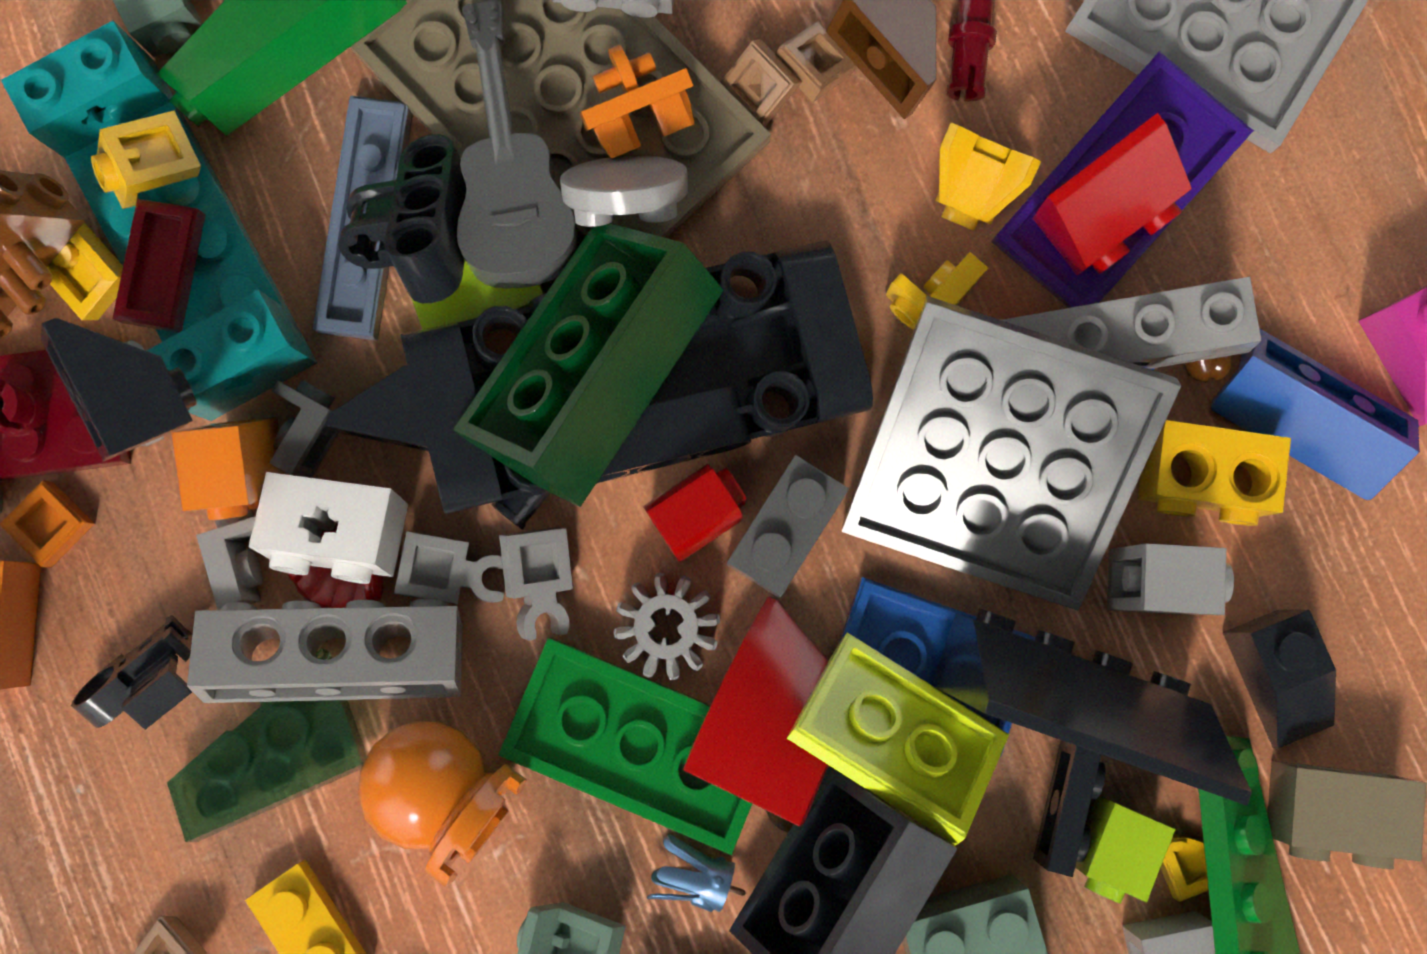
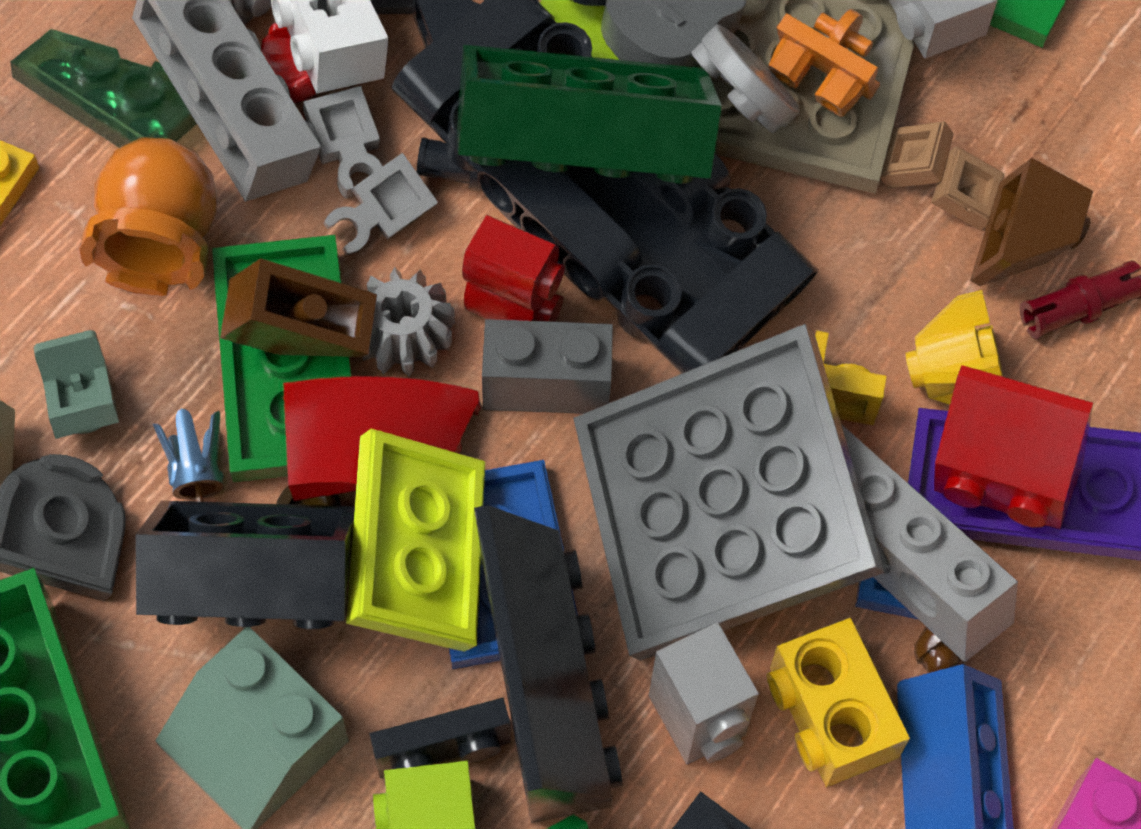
camera: 55 degrees right, 20 degrees down
(629, 726) = (297, 313): none -> reddish brown slope

